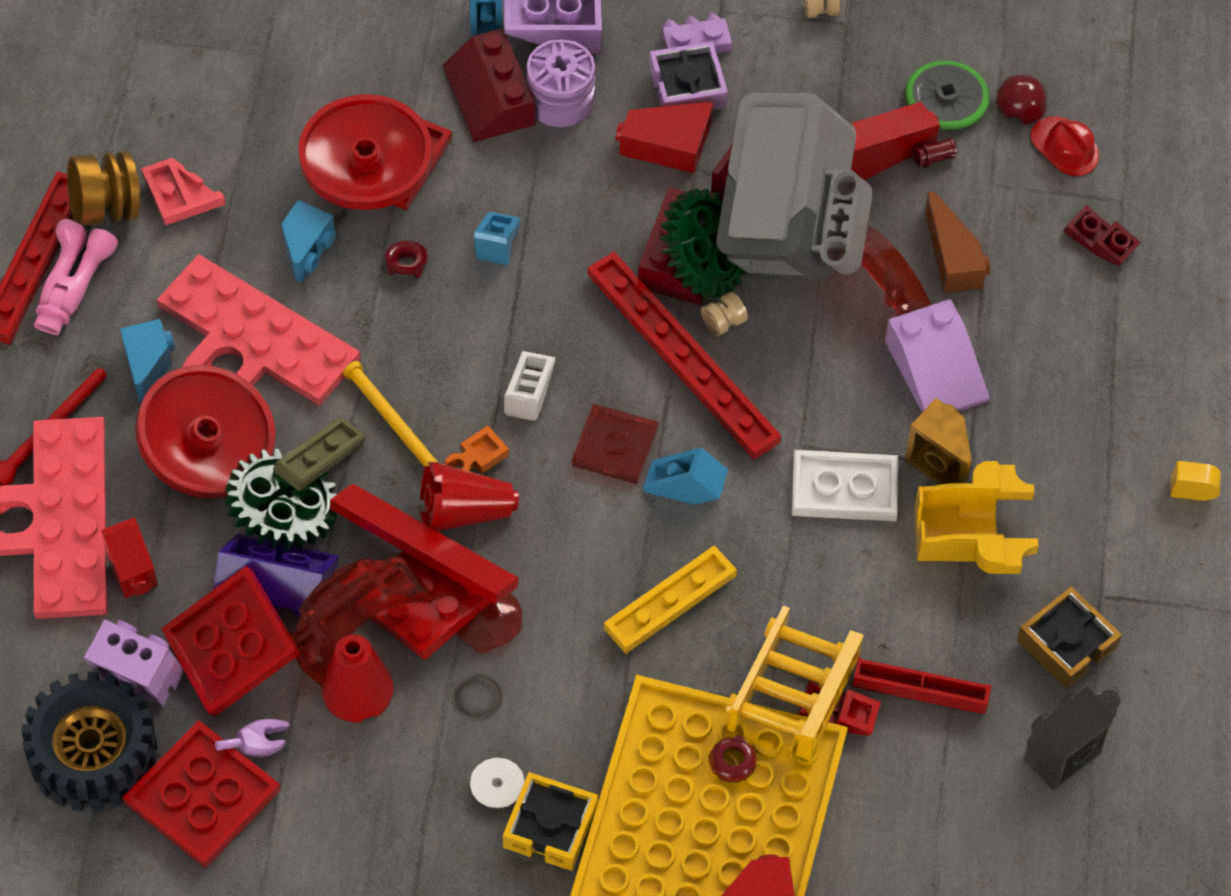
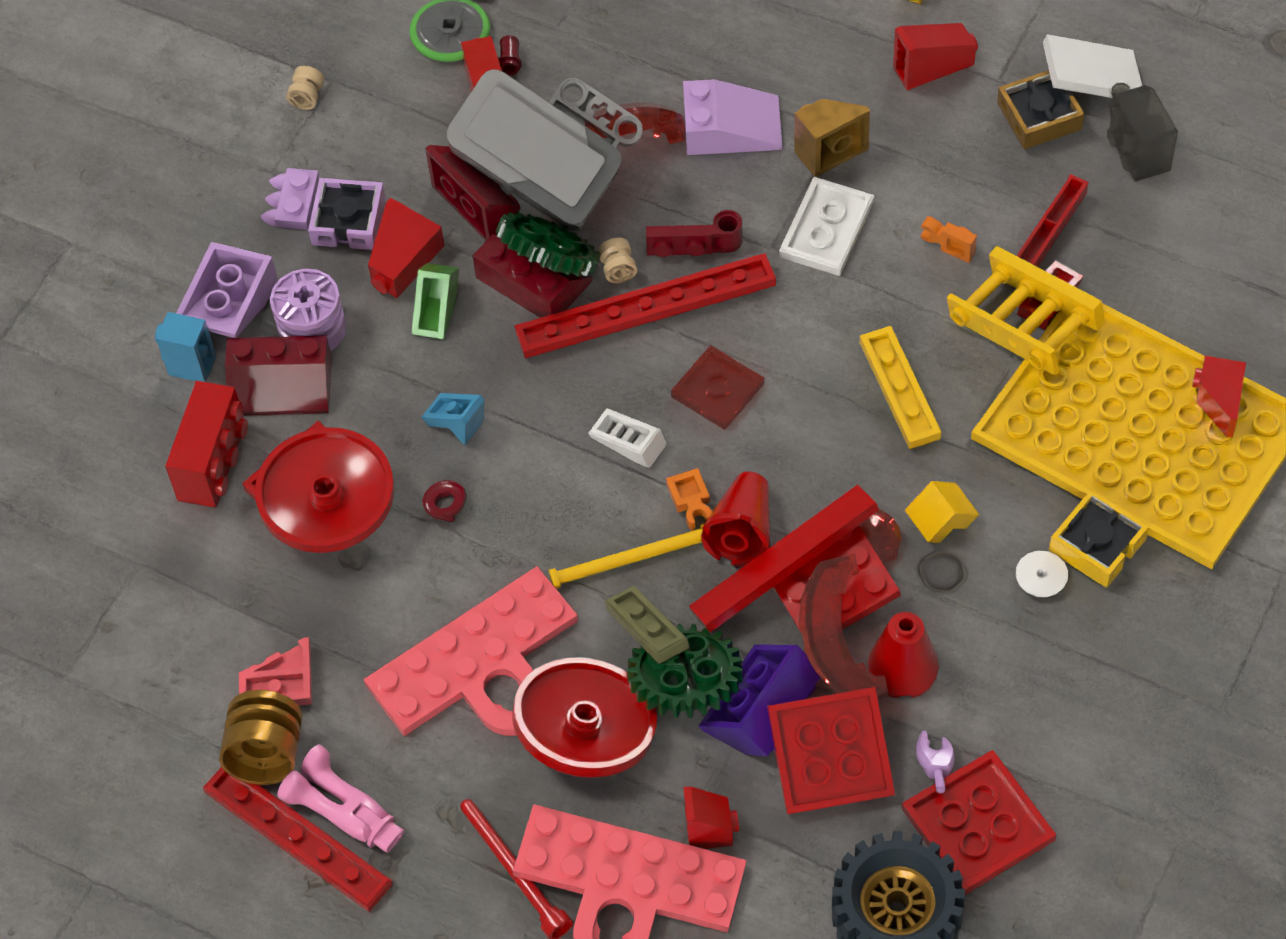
camera: 65 degrees left, 0 degrees up
(147, 353) = (468, 754): dark azure slope -> none
(149, 669) = (823, 848): lavender piece -> none
(306, 236) = (387, 580): dark azure slope -> none
(389, 51) = (206, 444): none -> red brick
(537, 672) = (940, 510): none -> yellow piece
(621, 178) = (434, 300): none -> bright green slope
(687, 477) = (779, 338): dark azure slope -> none
(732, 773) = (1082, 391): dark red piece -> none
(774, 374) = (697, 239): none -> dark red plate
(868, 603) = (953, 239): none -> orange plate
(955, 248) = (617, 70): dark orange slope -> none
(960, 520) = (901, 158): yellow piece -> none
(1096, 515) = (931, 52): none -> red slope
(1141, 671) = (1089, 66): none -> white tile

